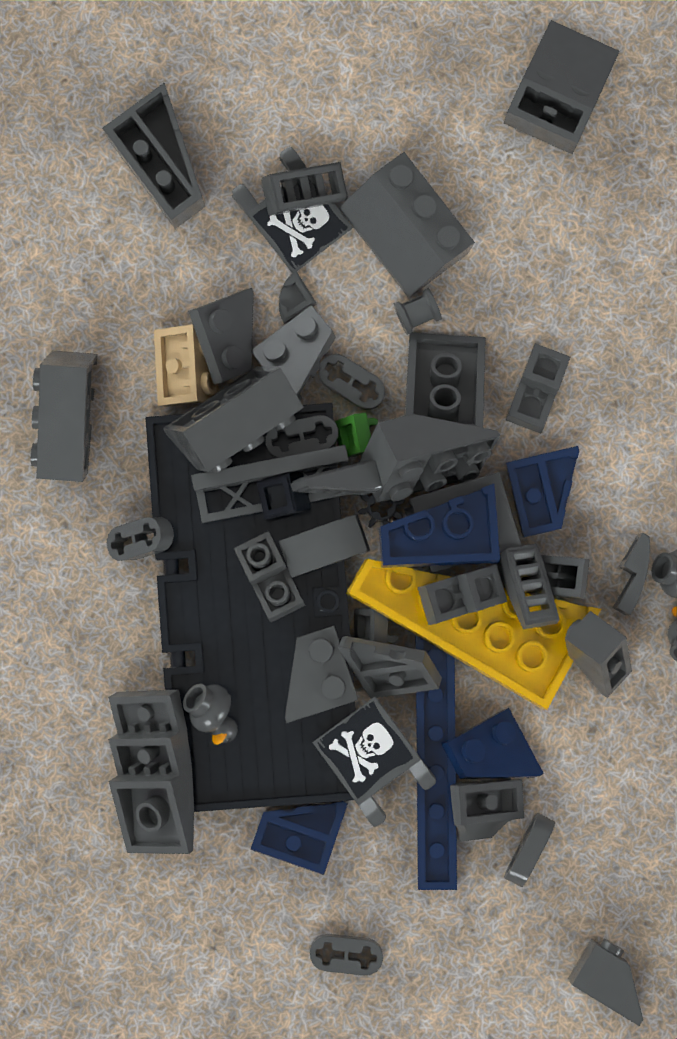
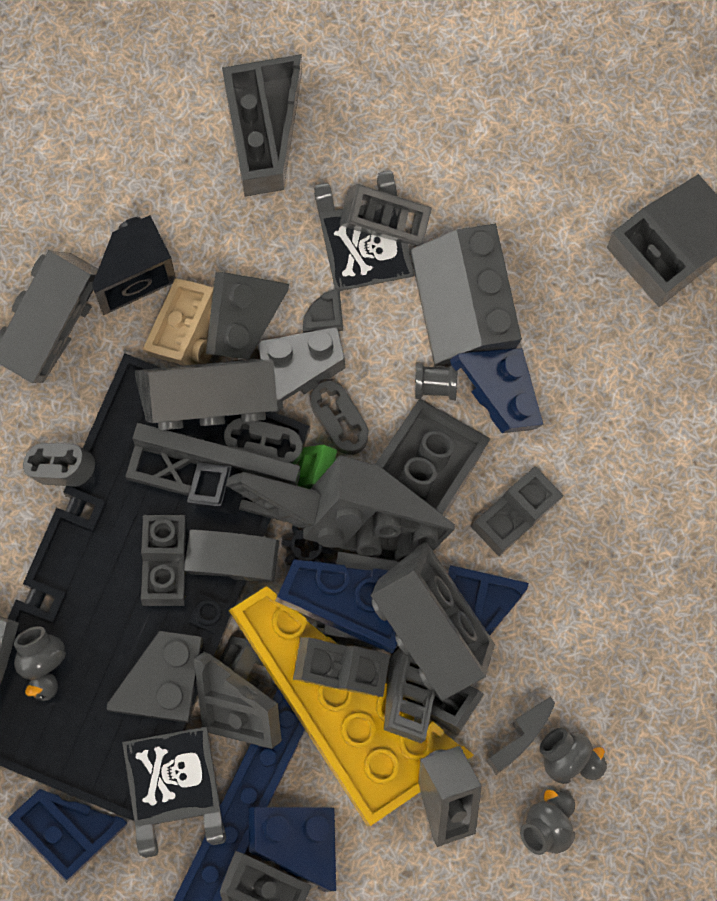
camera: 20 degrees right, 10 degrees down
(114, 337) = (132, 265): none -> black slope
(476, 289) = (502, 387): none -> dark blue wing
(522, 522) = (433, 623): none -> dark grey slope

